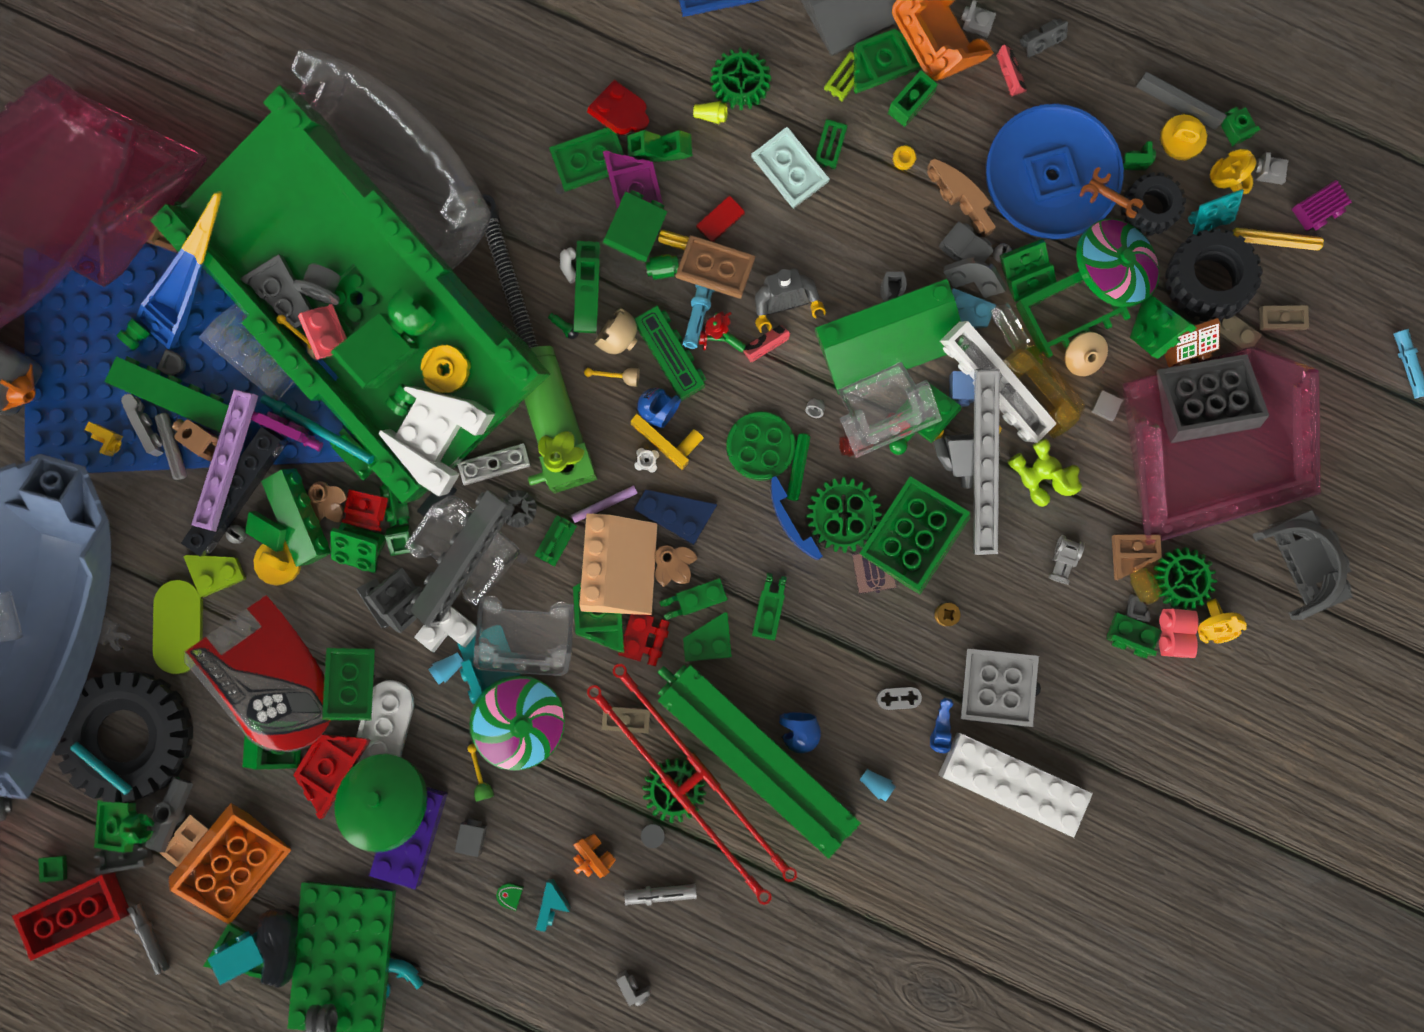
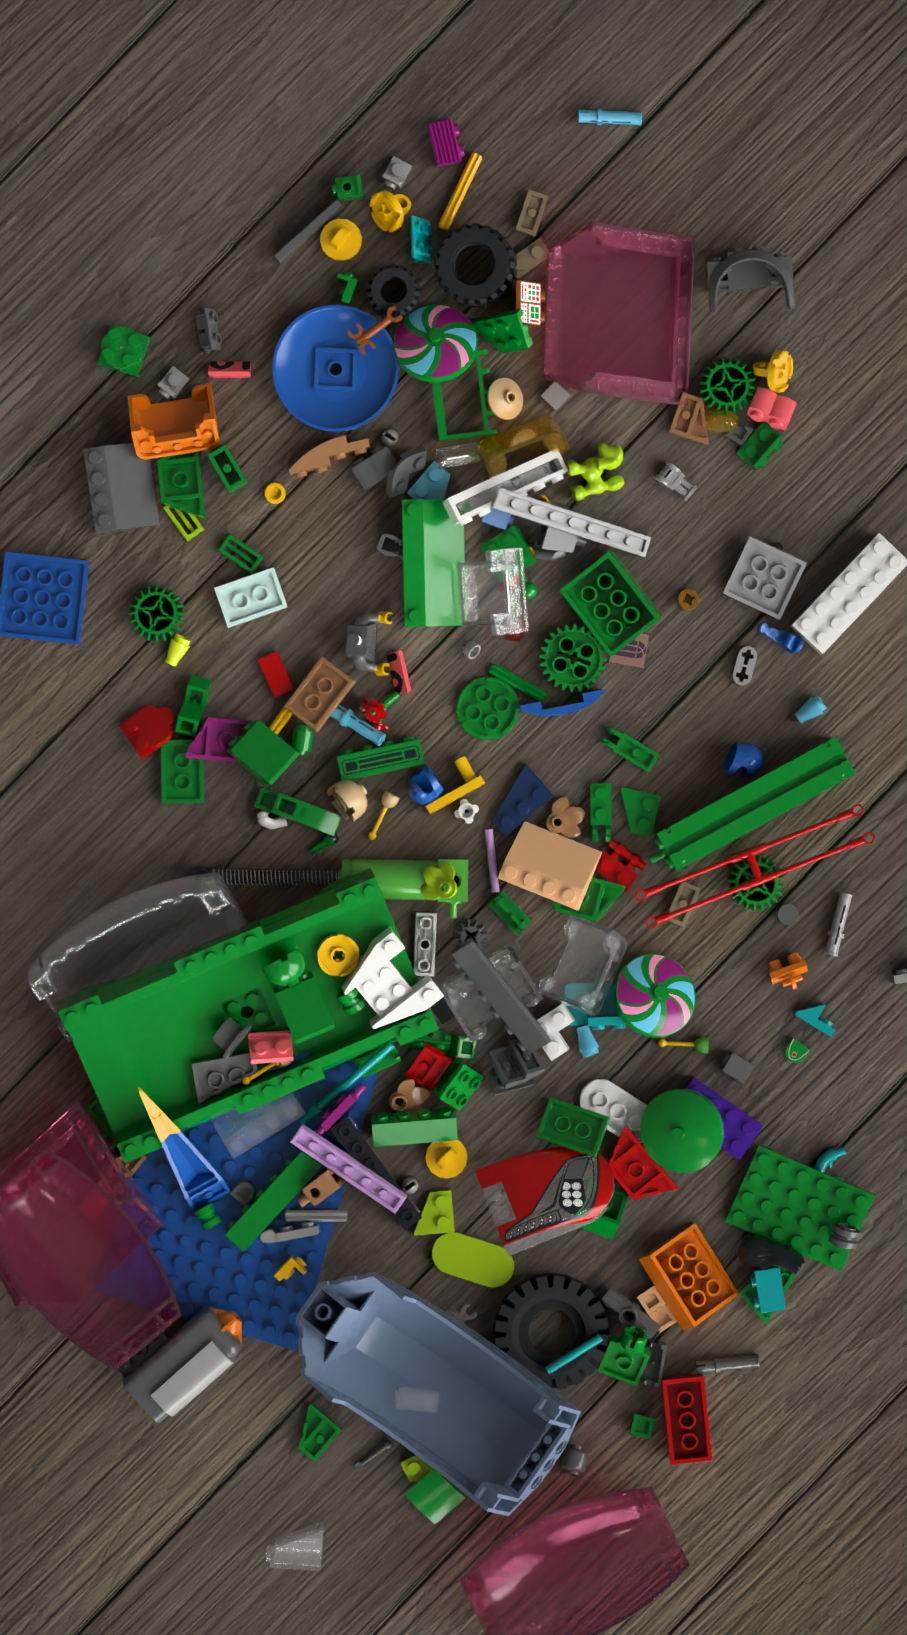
camera: 65 degrees left, 5 degrees up
(265, 531) = (417, 1157): green tile -> none
(1027, 269) = (413, 421): green slope -> none
(1210, 398) = (580, 307): dark grey slope -> none

